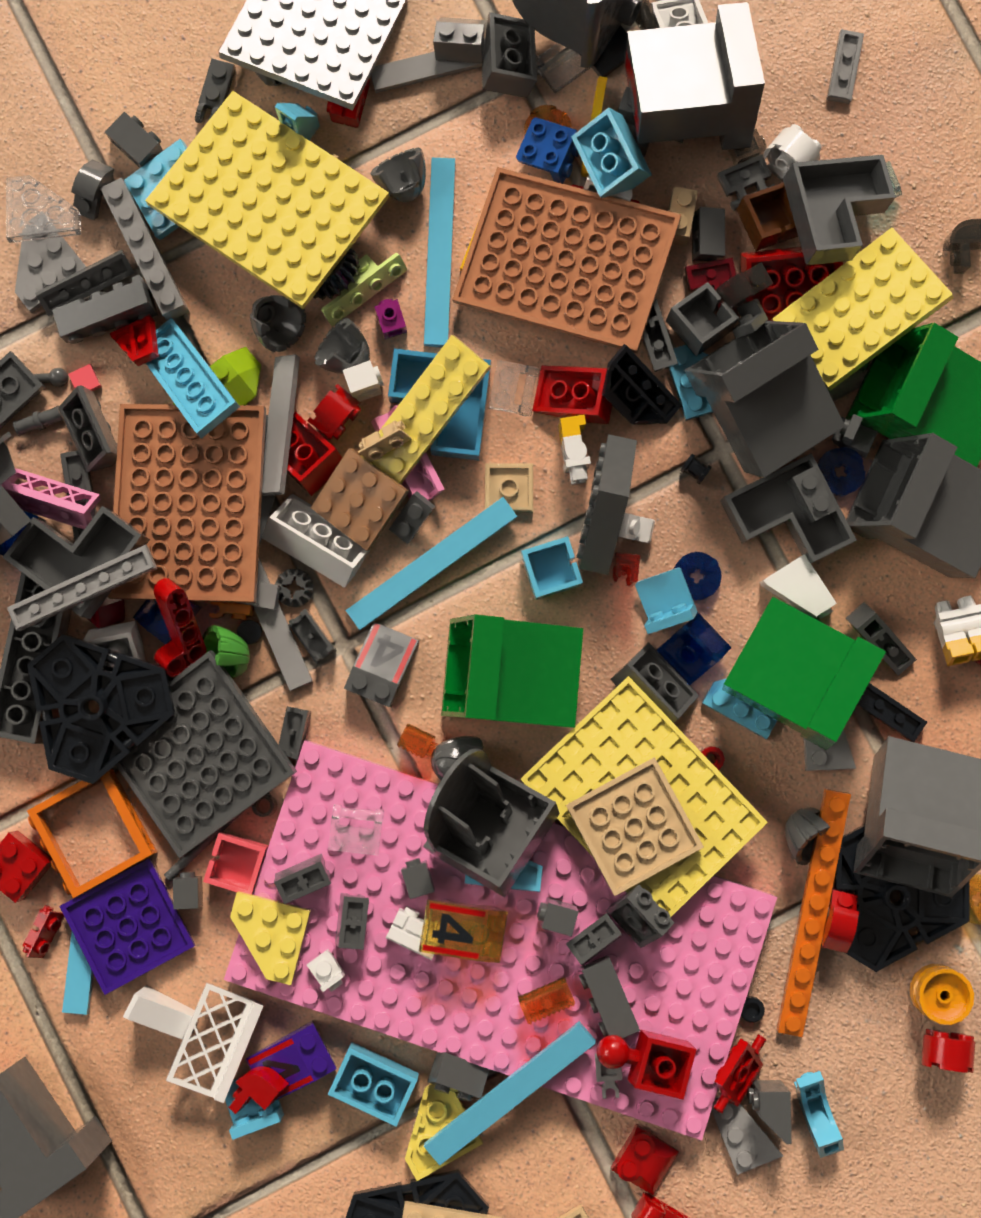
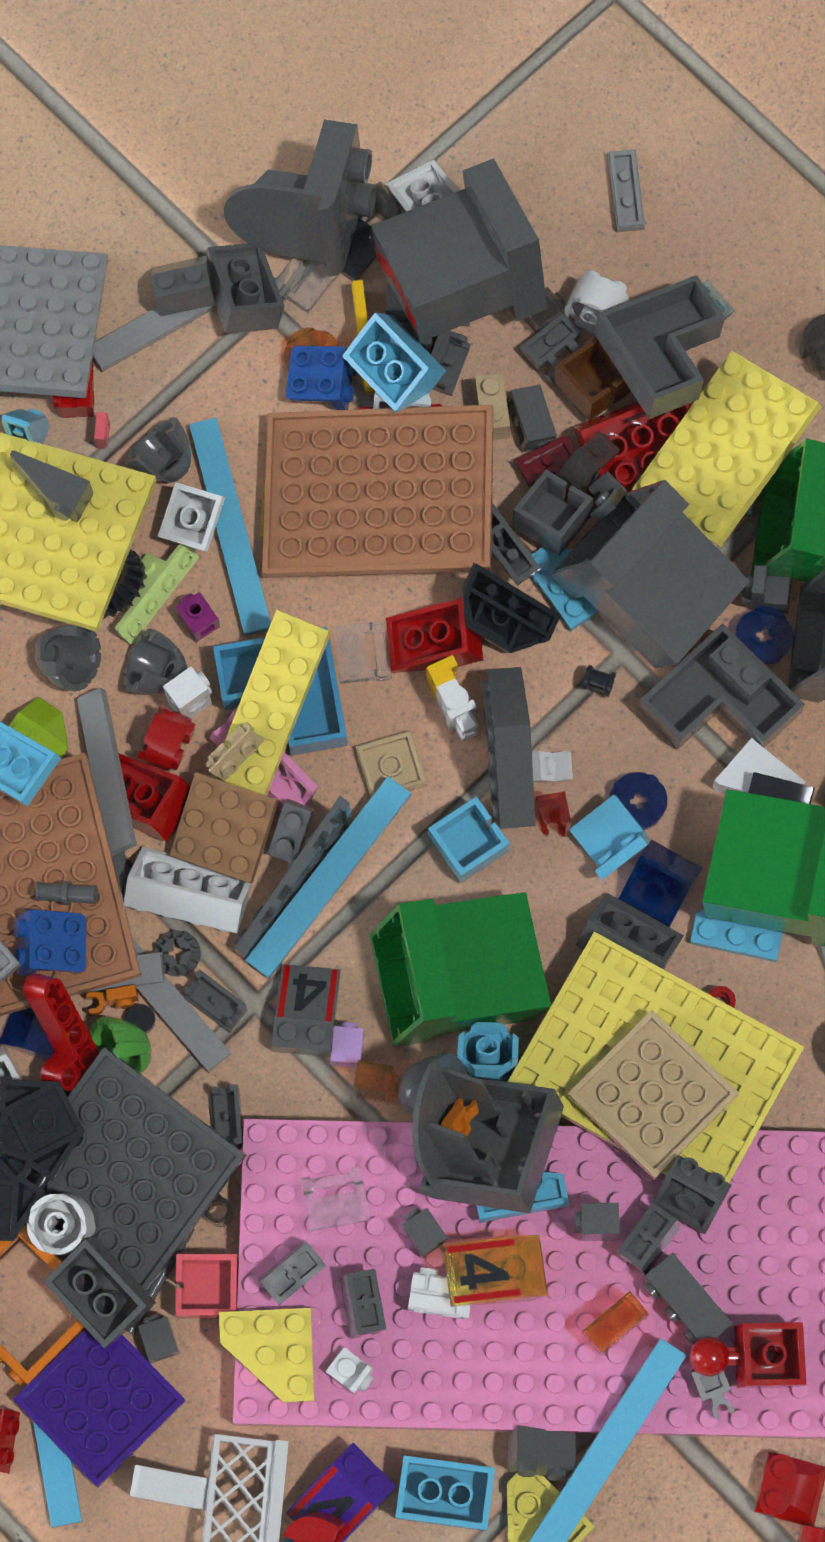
camera: 15 degrees left, 10 degrees down
(147, 778) = (45, 1217): none -> white brick
(149, 845) = (99, 1291): none -> dark grey slope
(189, 555) = (50, 942): none -> blue bracket
(214, 518) = (66, 893): none -> dark grey pin
(307, 182) = (60, 490): none -> dark grey slope
(359, 141) = (102, 430): none -> coral tile
(405, 703) = (347, 1045): none -> lavender brick
(408, 235) = (191, 517): none -> white slope
(408, 553) = (300, 869): none -> dark grey wing
(467, 808) = (460, 1116): none -> orange plate
(513, 749) = (488, 1051): none -> medium azure brick
(660, 161) = (450, 352): none -> dark grey hinge
(814, 606) = (780, 788): none -> black slope

